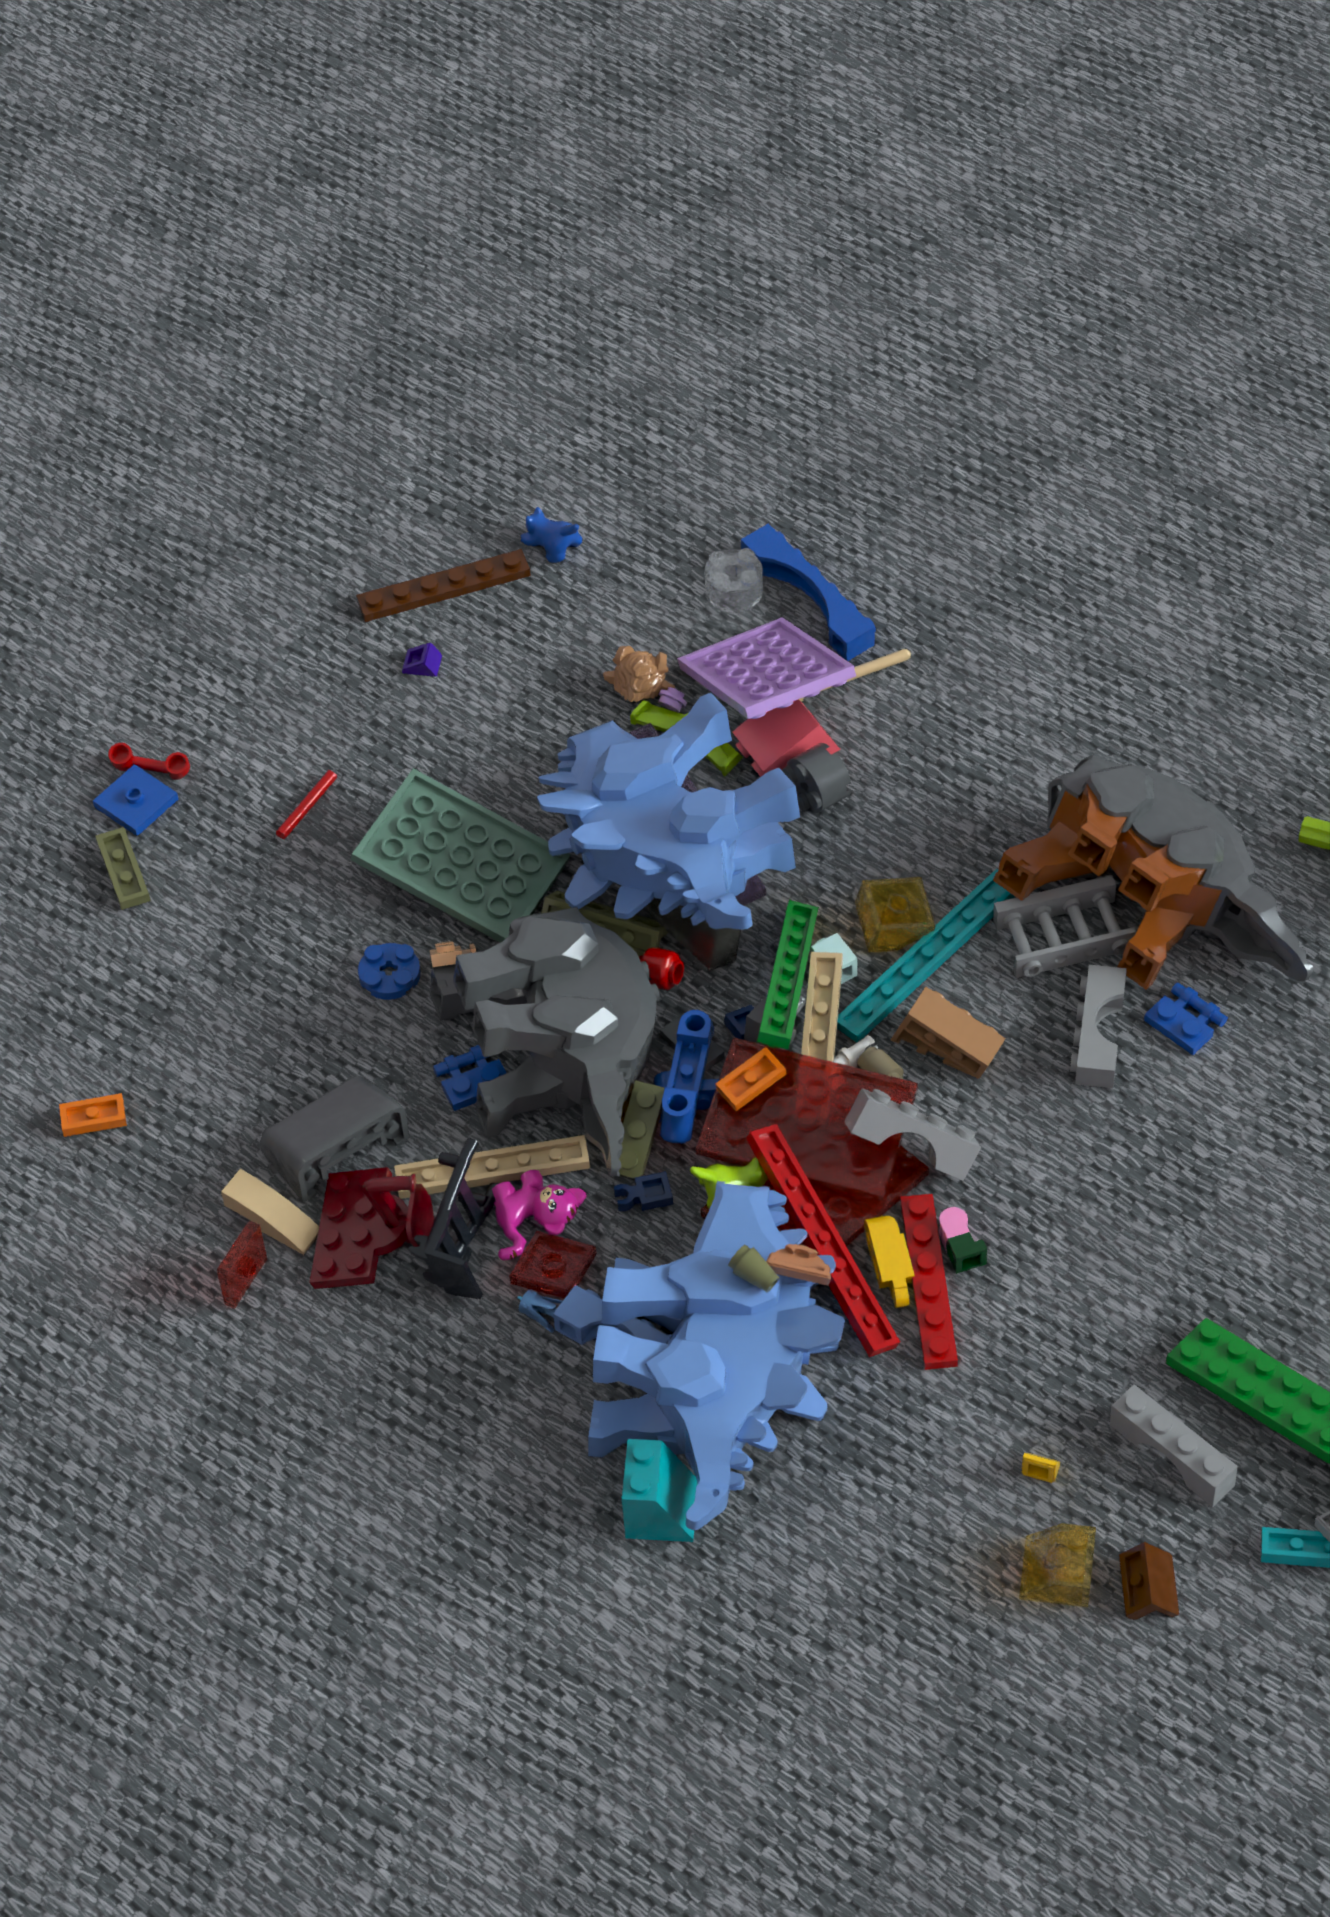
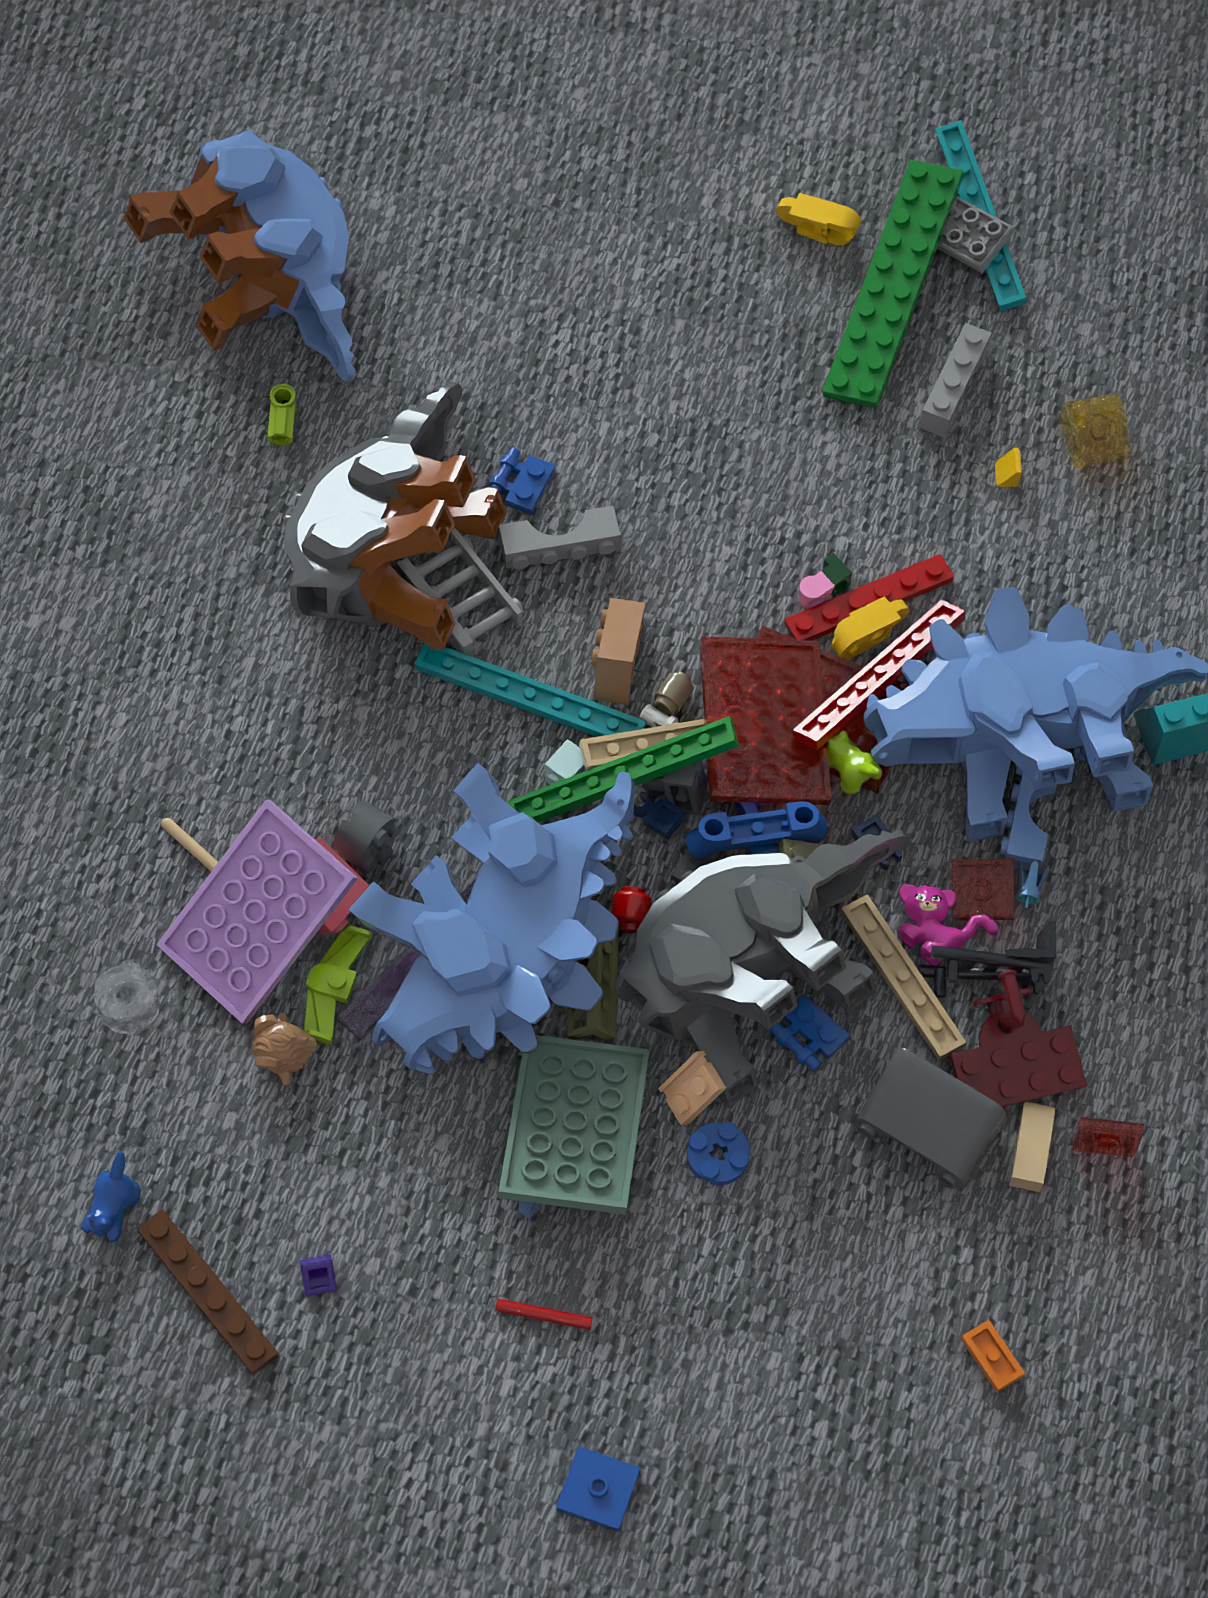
camera: 115 degrees left, 10 degrees up
(122, 758) = (542, 1463): red bar -> none
(122, 868) = (693, 1459): olive plate -> none
(672, 699) = (298, 1009): lavender plate -> none
(750, 1079) = (756, 764): orange plate -> none
(753, 1268) = (989, 661): olive cone -> none
(800, 1263) = (959, 639): nougat plate -> none
(848, 629) = (154, 881): blue arch -> none
(878, 1118) = (757, 640): light grey arch -> none
(893, 912) = (501, 728): clear yellow slope -> none
(1148, 1581) = (1081, 372): reddish brown panel -> none

